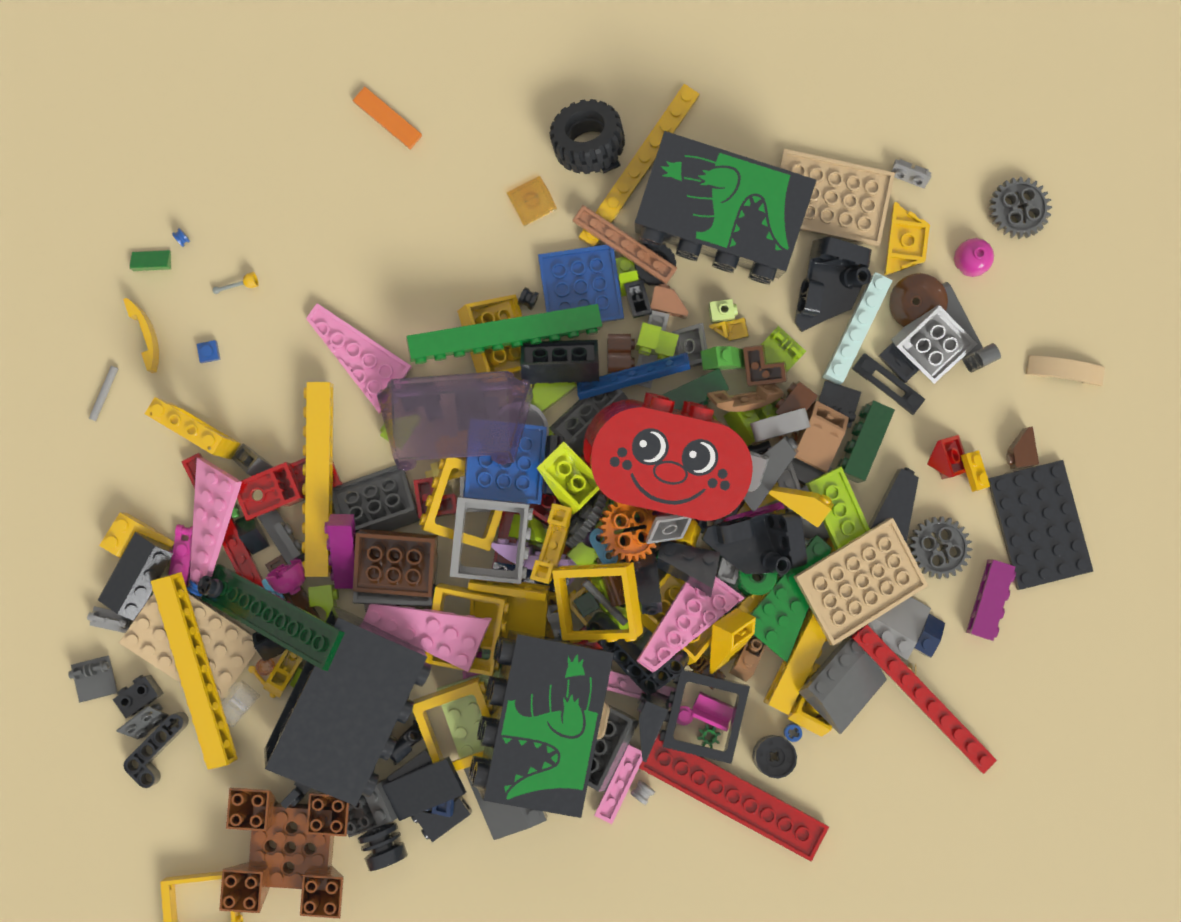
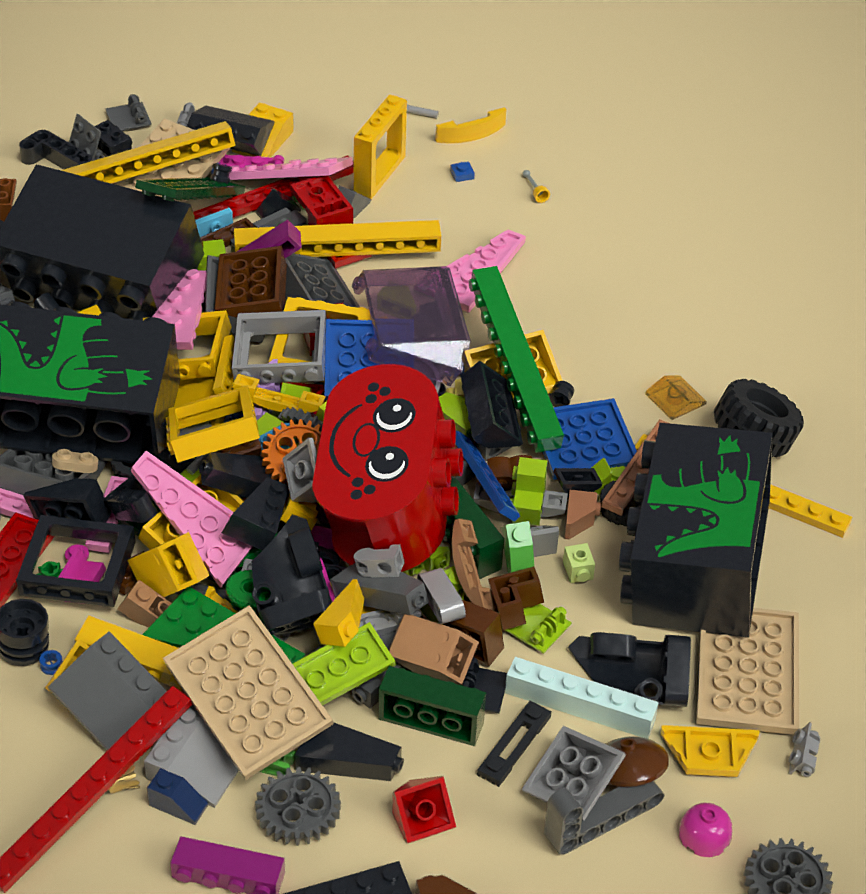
camera: 85 degrees right, 40 degrees down
(150, 260) = (547, 130): green slope -> none
(181, 237) = (575, 146): blue bush -> none
(287, 578) = (228, 218): dark pink cylinder -> none
(387, 118) = (738, 281): orange tile -> none
(732, 329) = (557, 578): yellow slope -> none
(898, 362) = (537, 748): black plate -> none
(975, 471) = (407, 843): yellow plate -> none

